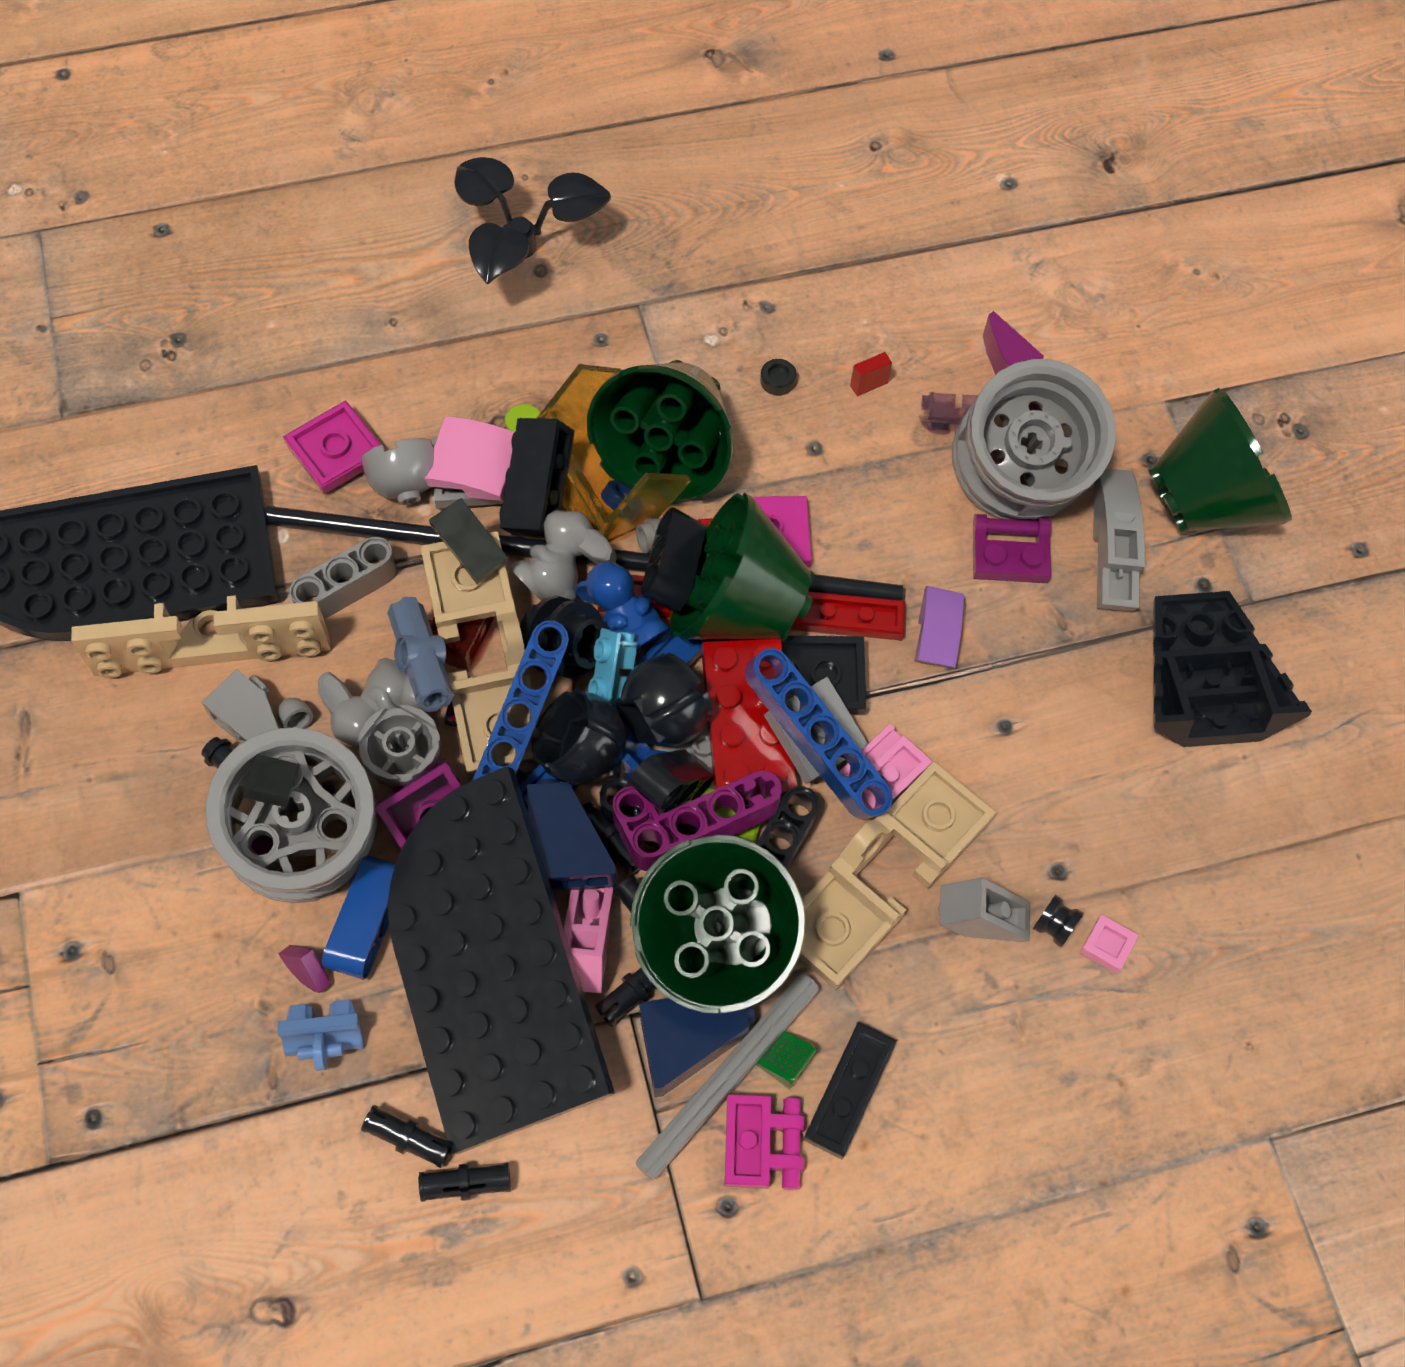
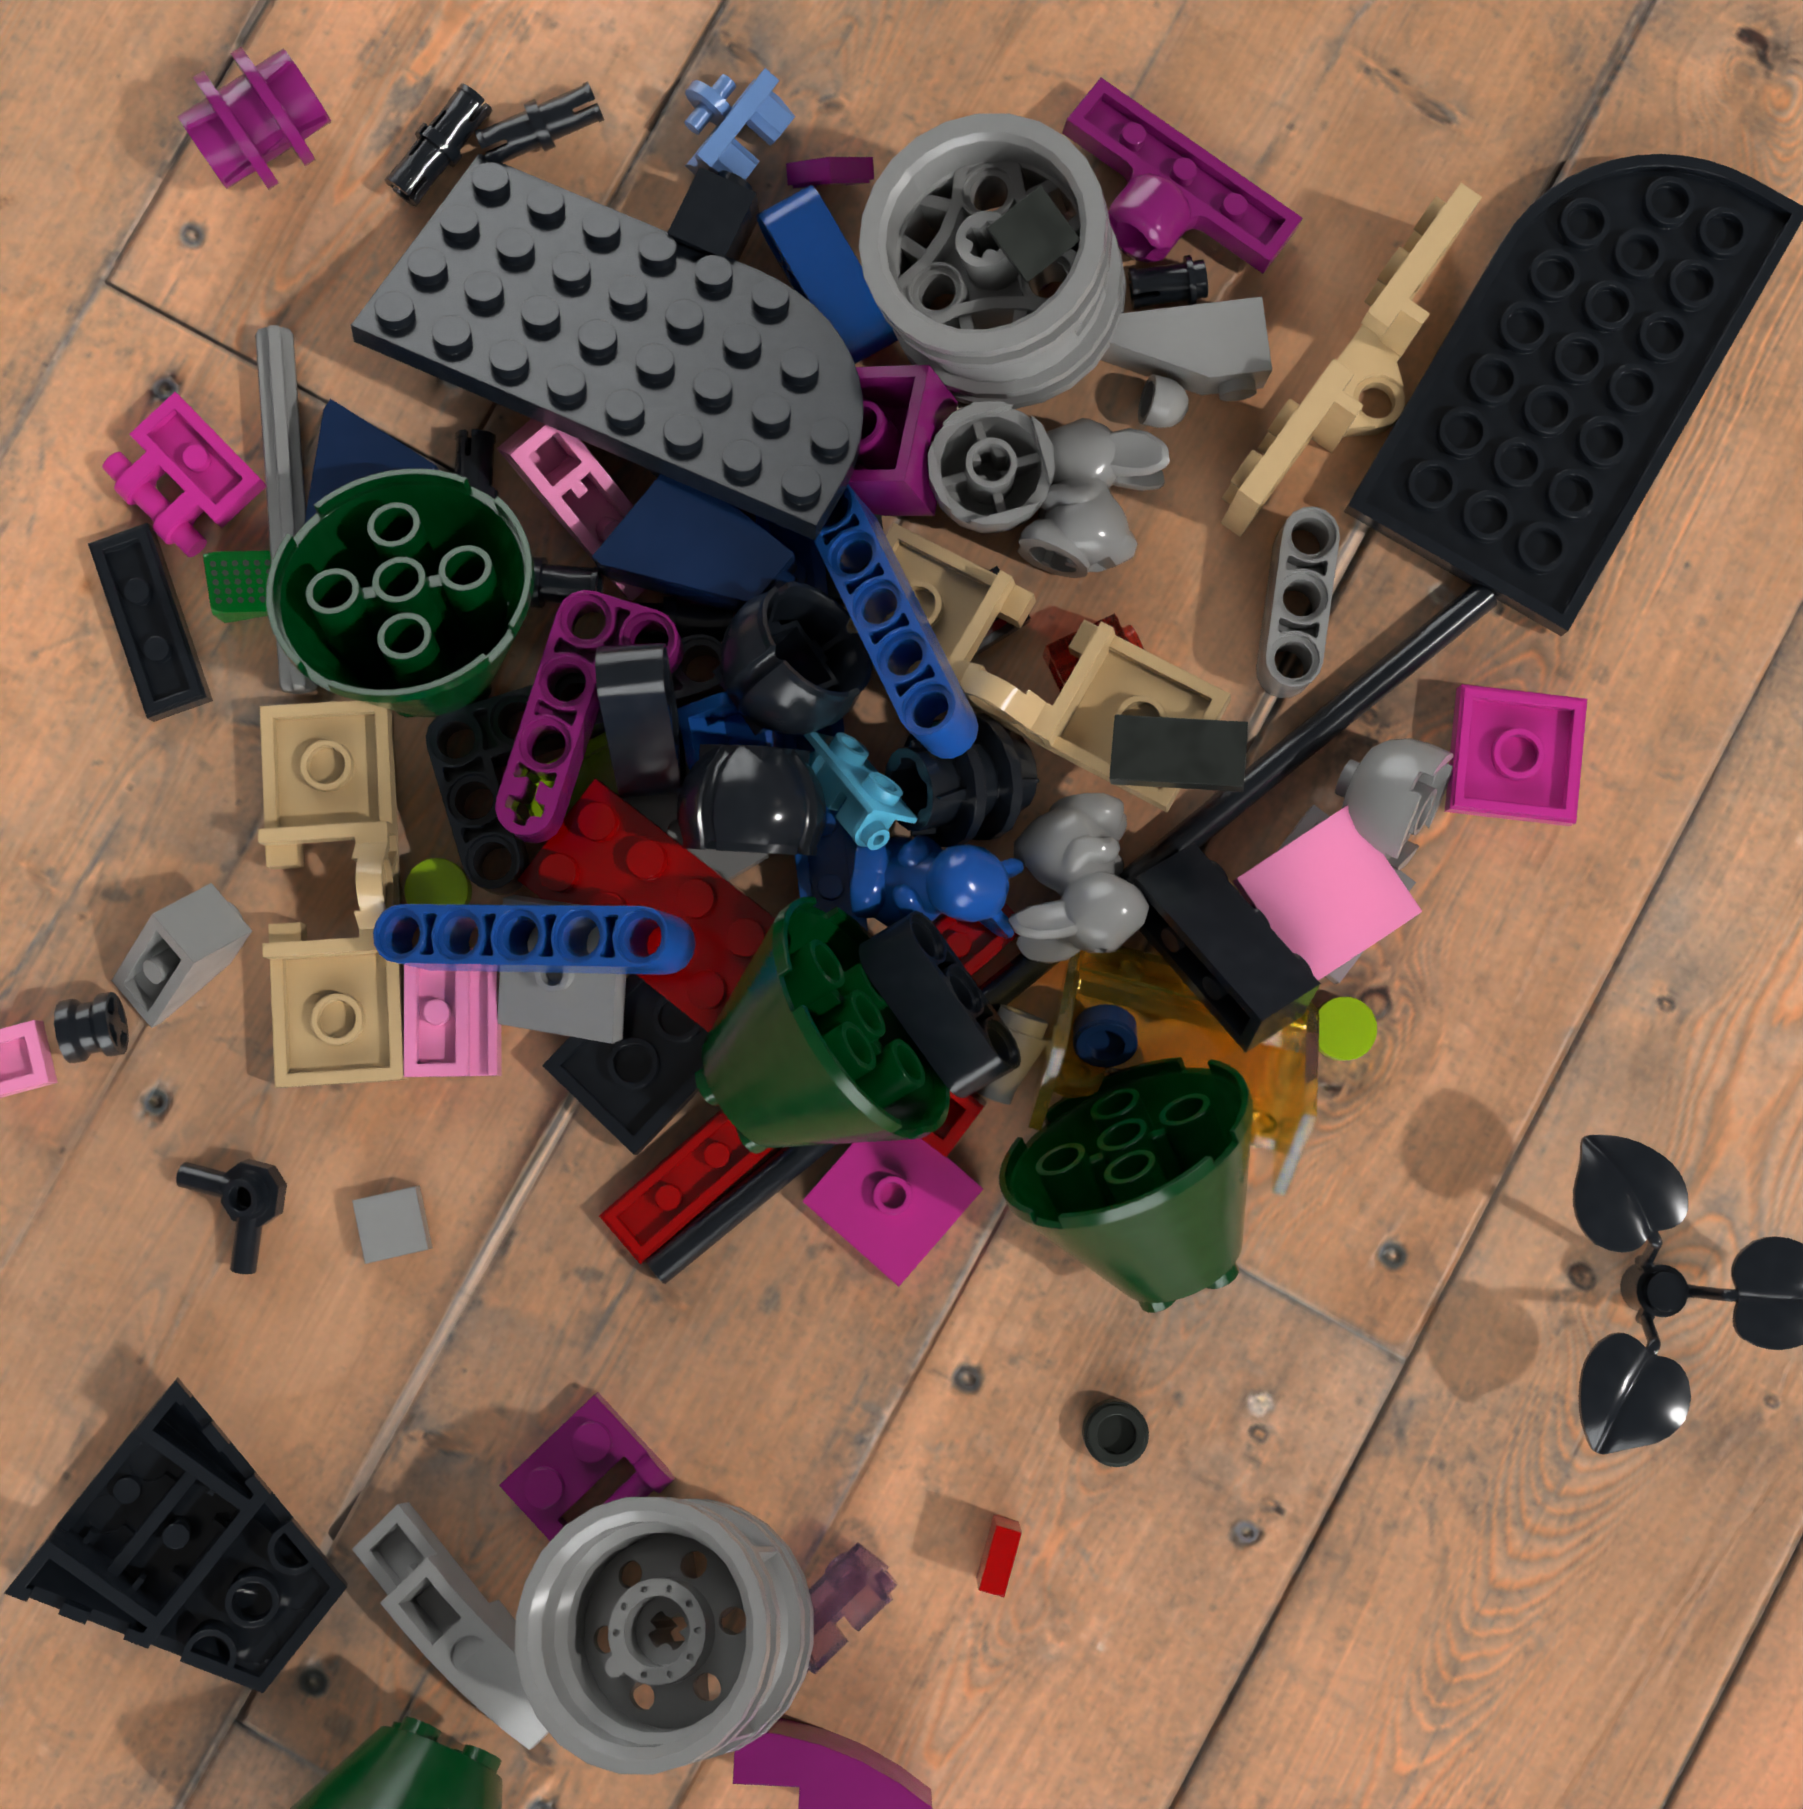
camera: 135 degrees right, 20 degrees up
(167, 798) = (1174, 185): none -> magenta plate
(381, 995) = (716, 214): none -> black brick
(420, 654) = (1082, 576): sand blue piece -> none
(540, 1278) = (254, 118): none -> magenta piece
(836, 830) = (438, 883): none -> lime tile
(940, 627) = (562, 1270): medium lavender slope -> none
(997, 716) = (392, 1224): none -> light grey tile
(1051, 783) = (251, 1196): none -> black piece

